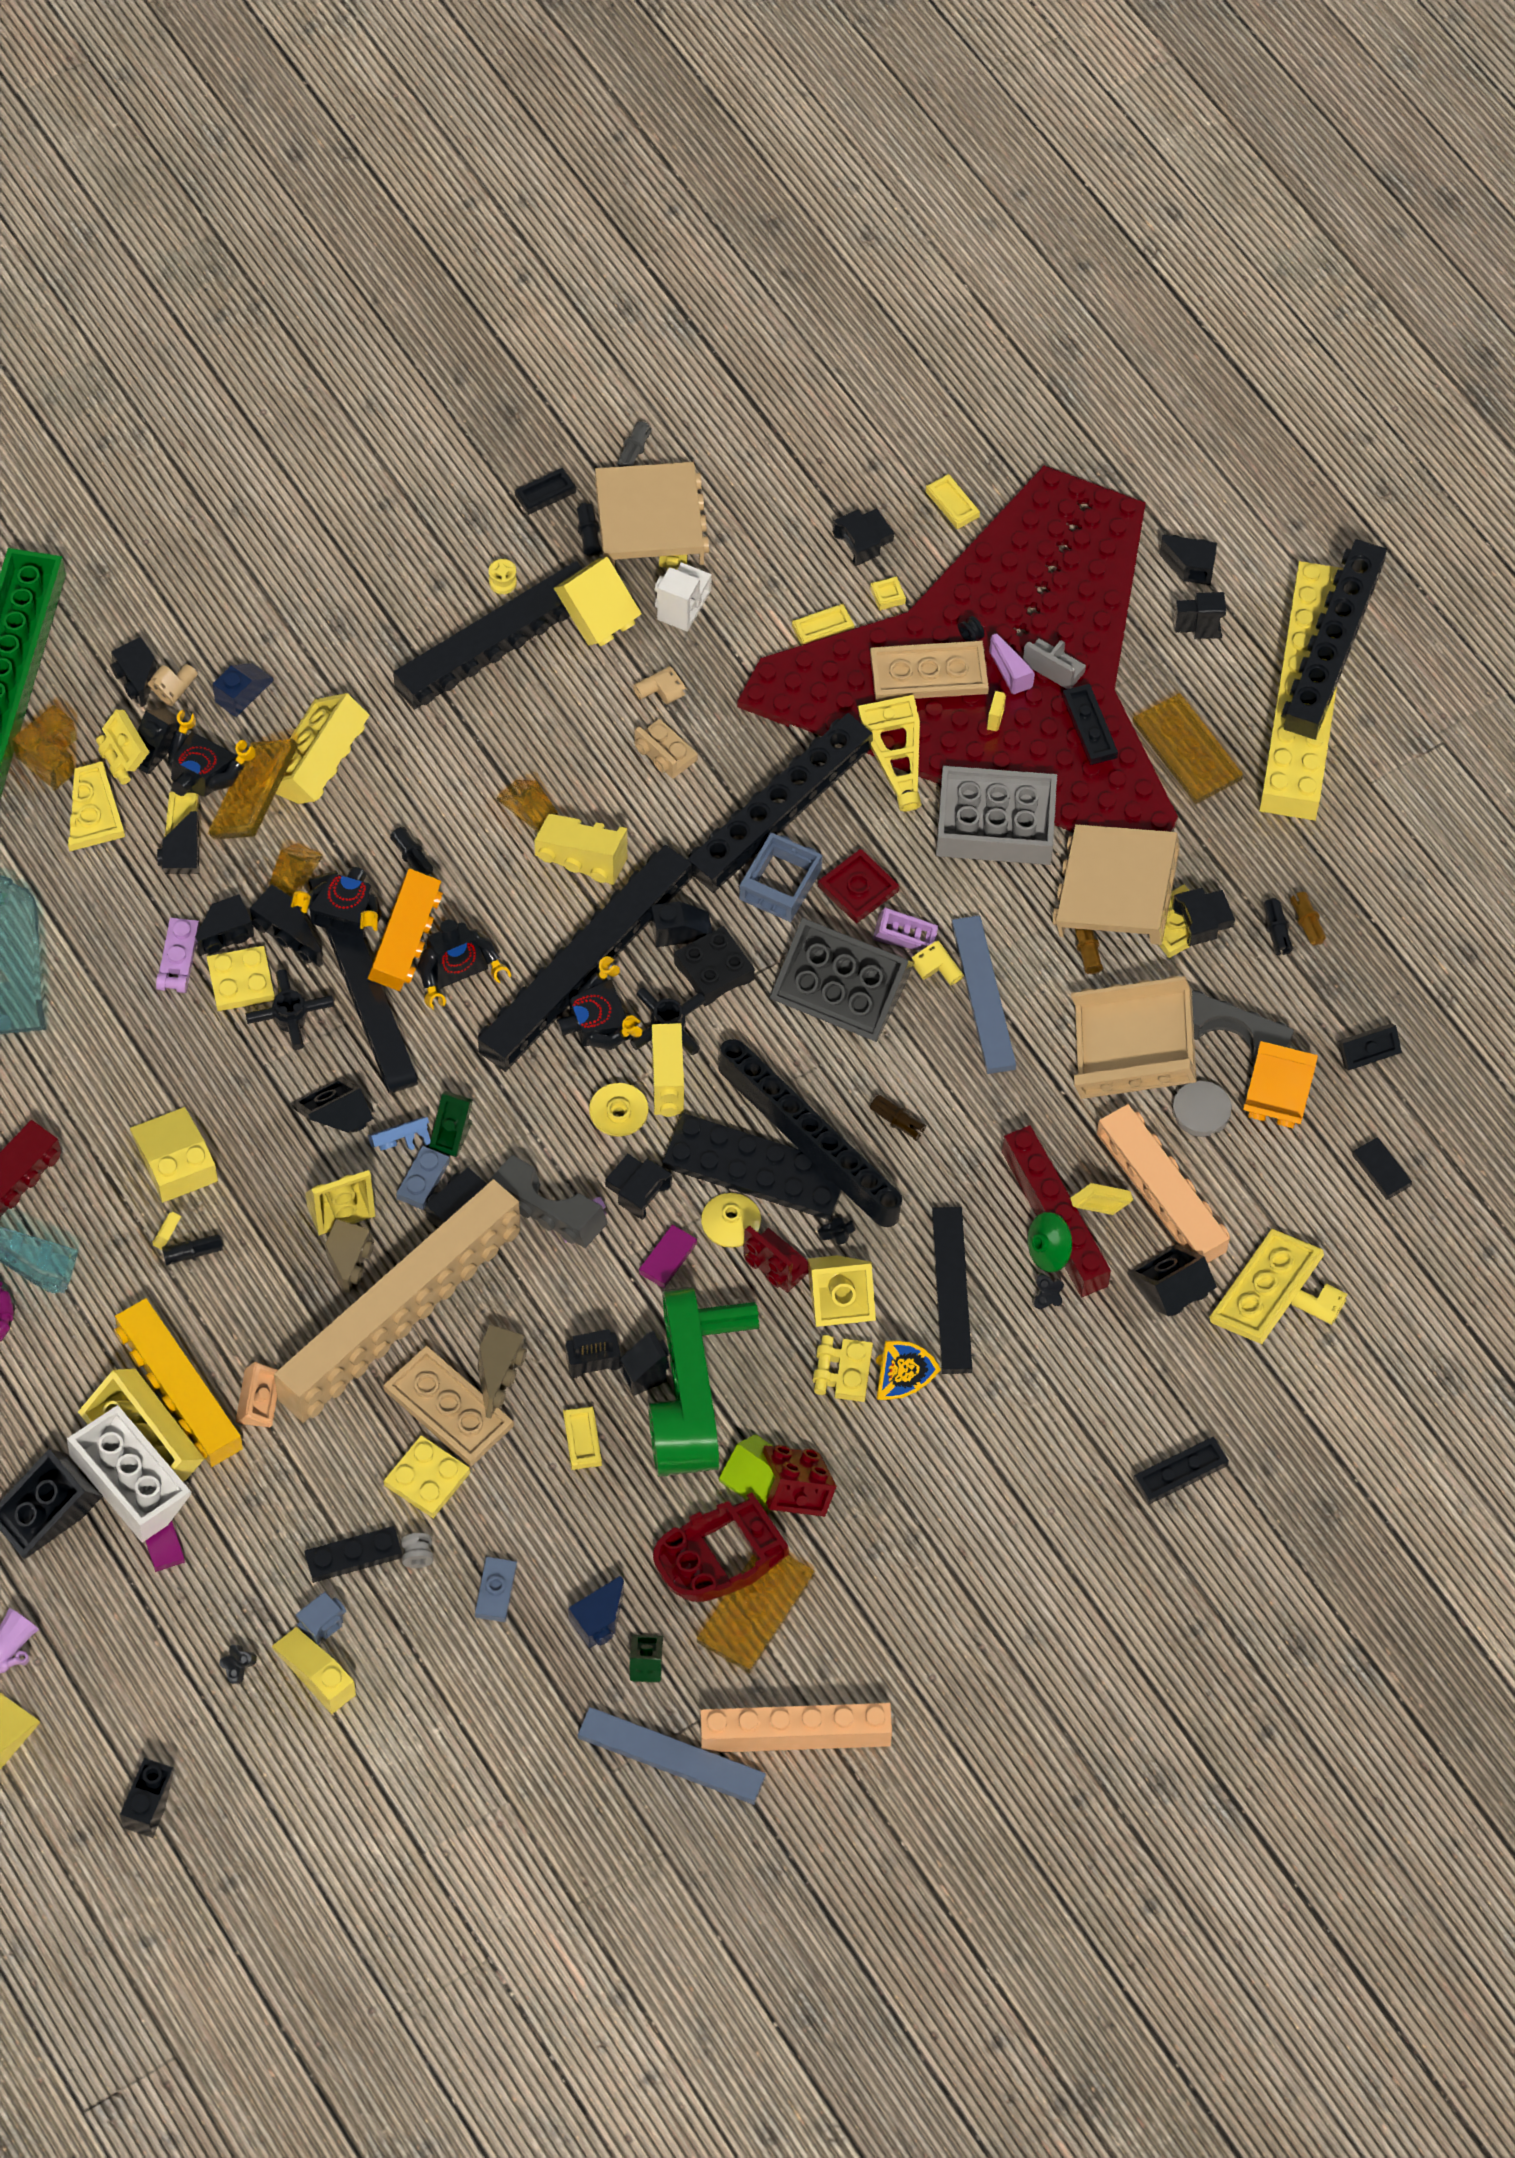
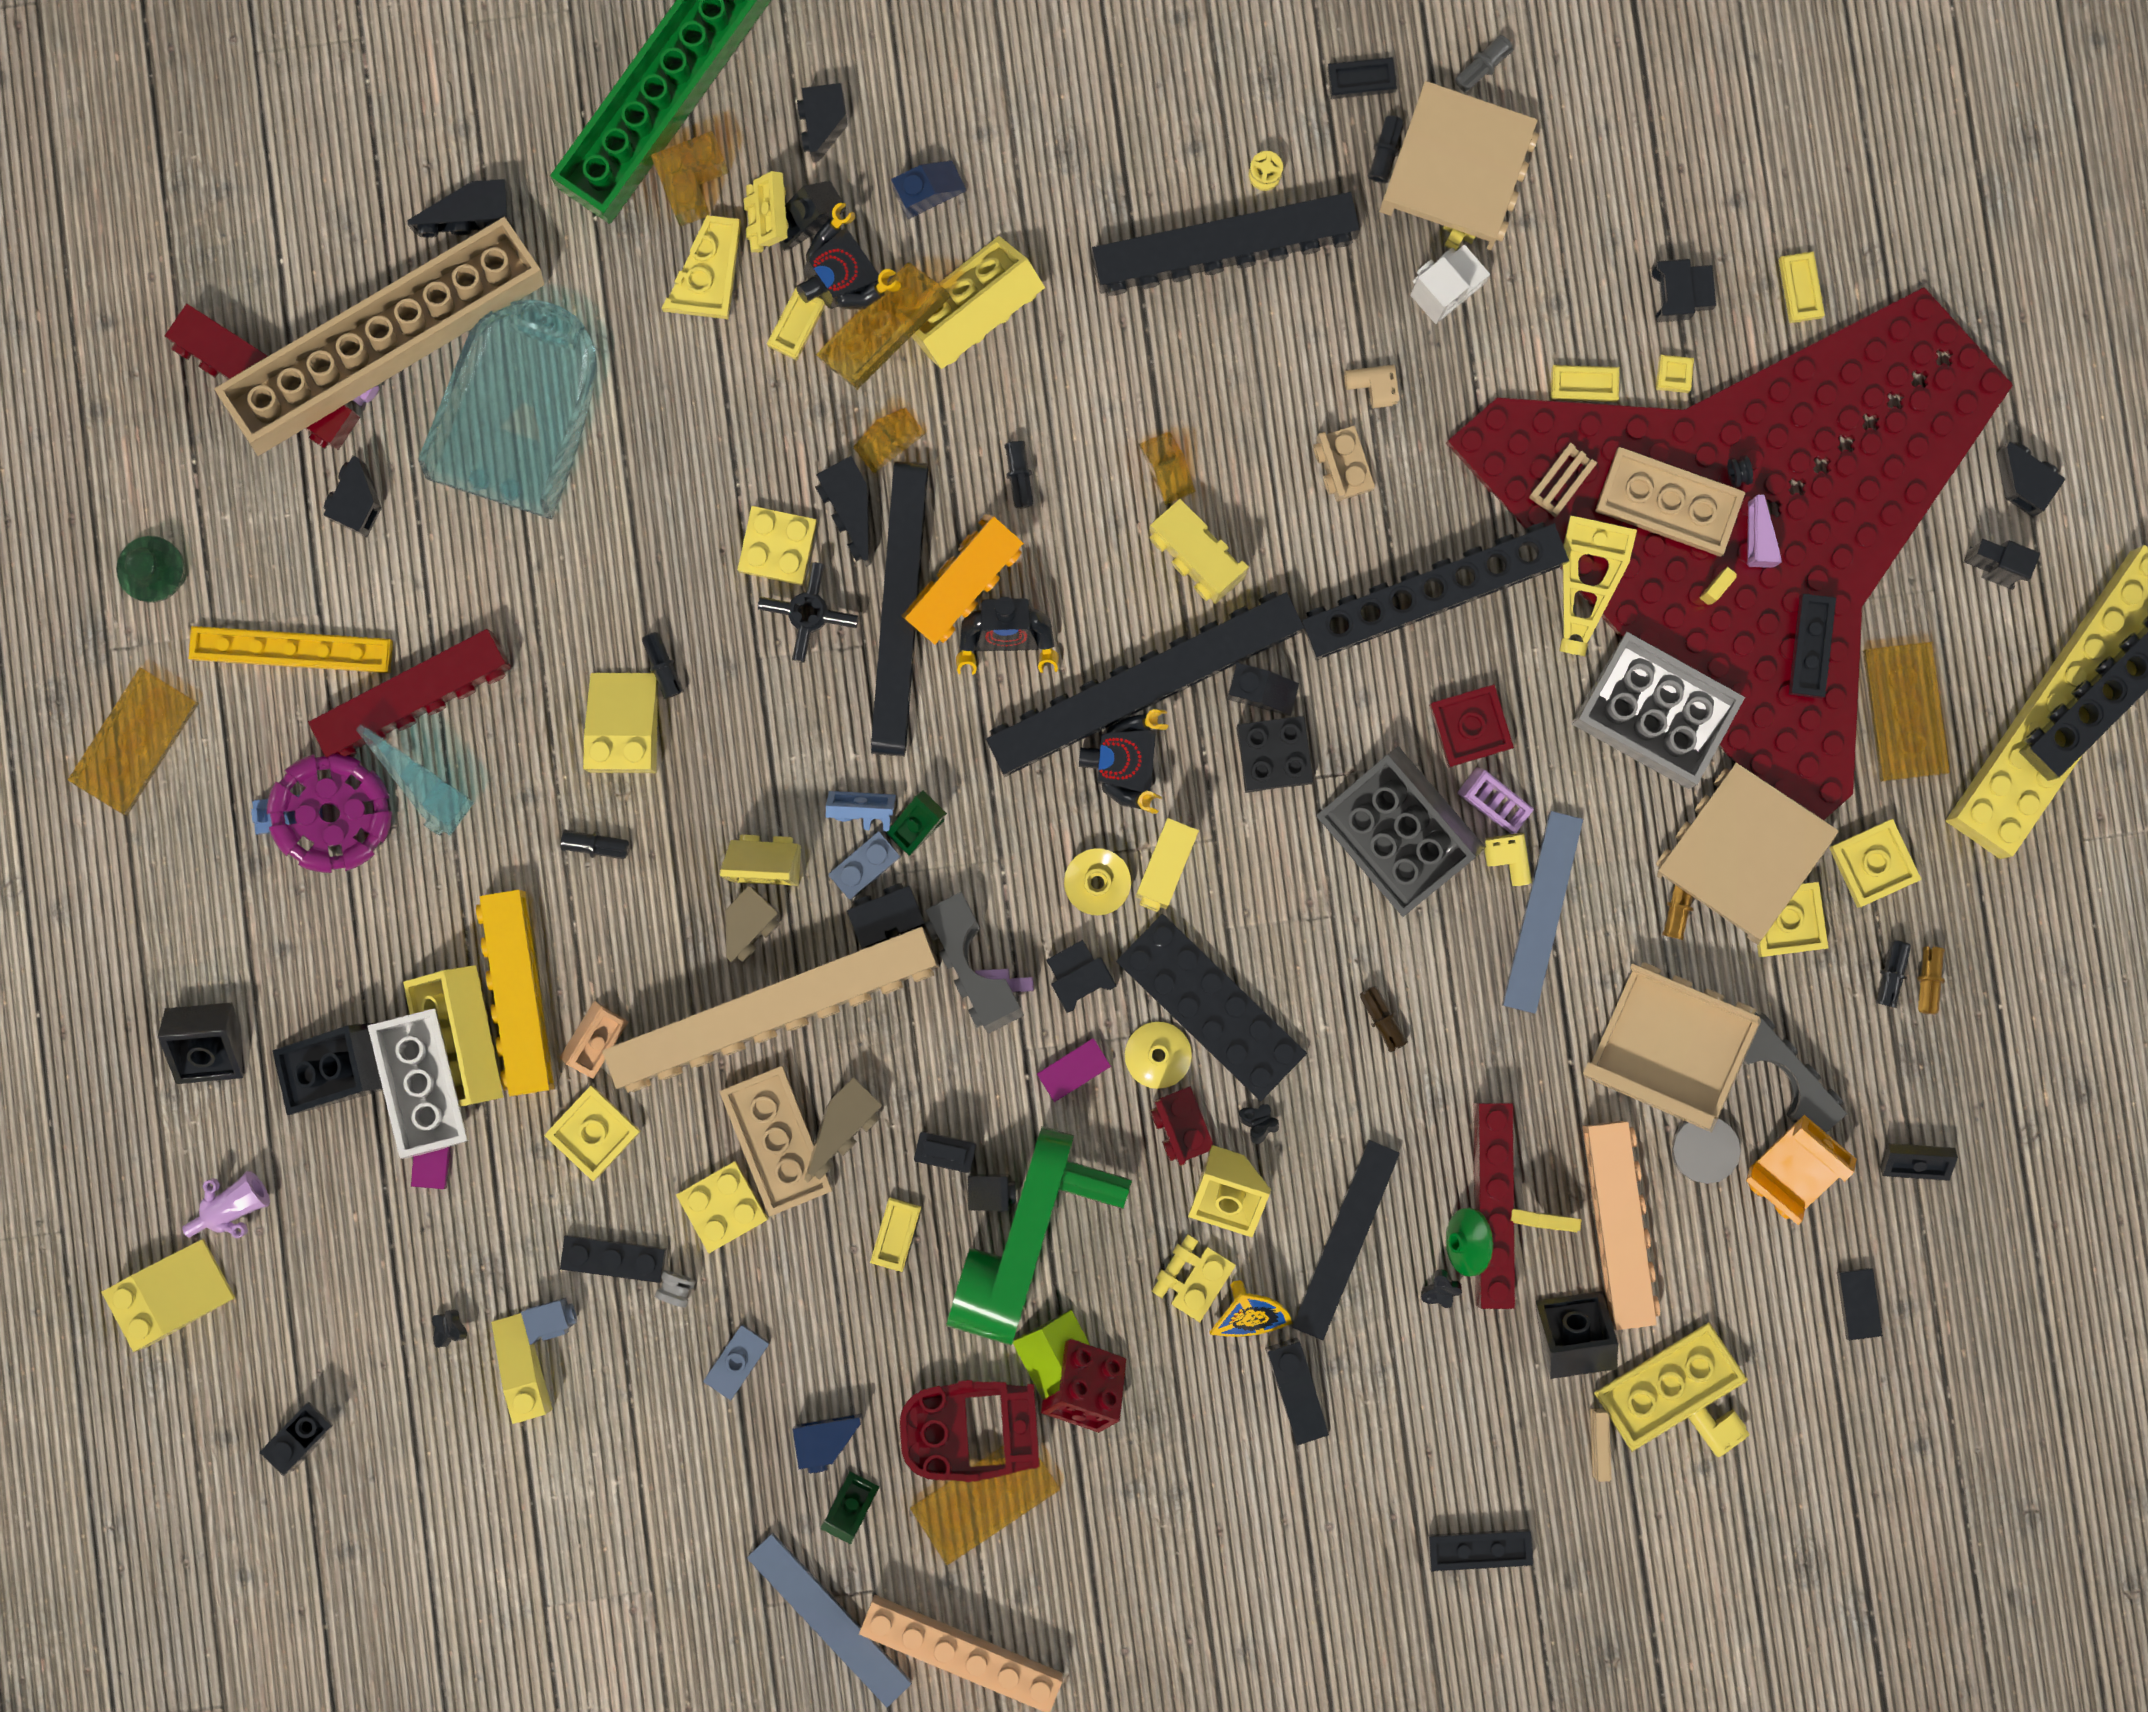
camera: 25 degrees right, 25 degrees up
(166, 1230) = (576, 814): light yellow tile -> none
(171, 684) = (851, 155): tan piece -> none
(178, 955) = (724, 489): lavender plate -> none
(182, 847) = (778, 366): black slope -> none
(187, 1097) = (662, 665): none -> black axle
(224, 925) = (784, 476): black slope -> none
(291, 1462) = (592, 1133): none -> light yellow plate
(336, 1105) = (804, 746): black slope -> none
(342, 904) = (911, 519): black torso -> none
(598, 602) = (1350, 255): light yellow brick -> none
(672, 1013) = (1202, 788): black bar -> none
(773, 900) = (1366, 699): sand blue window -> none
(810, 1133) = (1276, 1020): black beam -> none
(843, 670) = (1580, 457): none -> tan tile
(969, 1412) = (1297, 1391): none -> black slope
(1053, 662) = (1810, 551): light grey panel -> none
(1203, 914) = (1820, 934): black piece -> none
(1221, 856) = (1875, 863): none -> light yellow plate
(1234, 1350) = (1600, 1444): none -> tan tile

